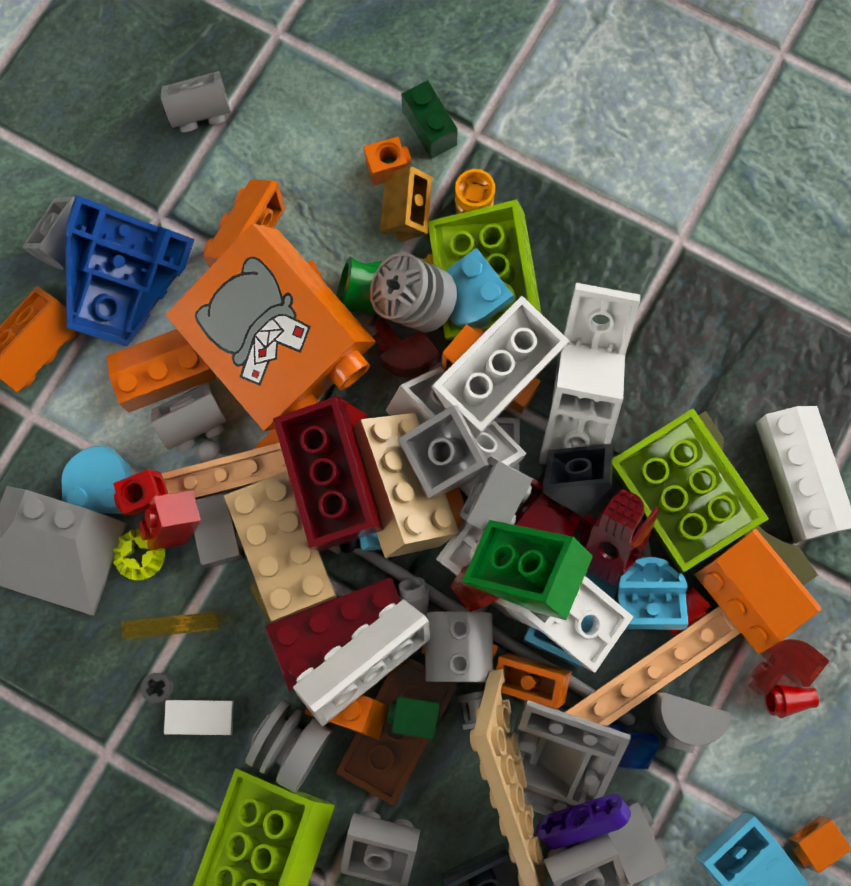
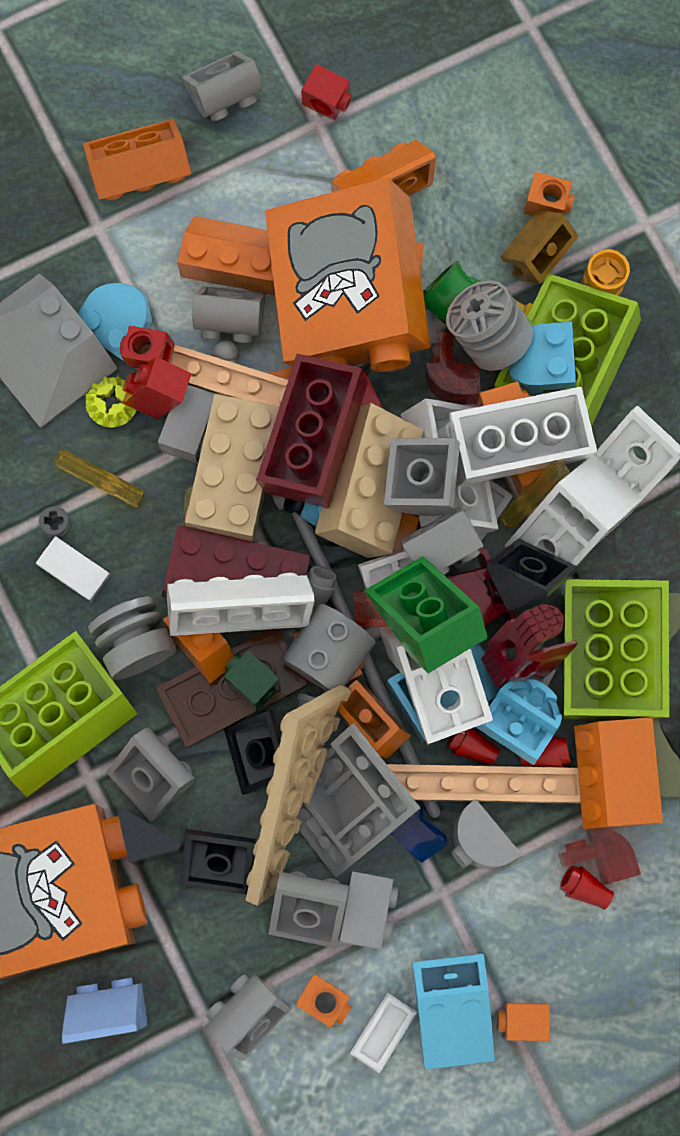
camera: 30 degrees right, 0 degrees up
(117, 270) = (250, 147): blue wedge -> none
(150, 187) = (326, 92): none -> red brick
(195, 101) = (414, 40): light grey brick -> none
(429, 119) = (611, 184): dark green brick -> none
(454, 770) = (253, 750): none -> black slope
(538, 406) = (534, 493): none -> clear yellow axle
(604, 814) = (335, 863): dark purple beam -> none
(629, 645) = (473, 746): none -> red cone

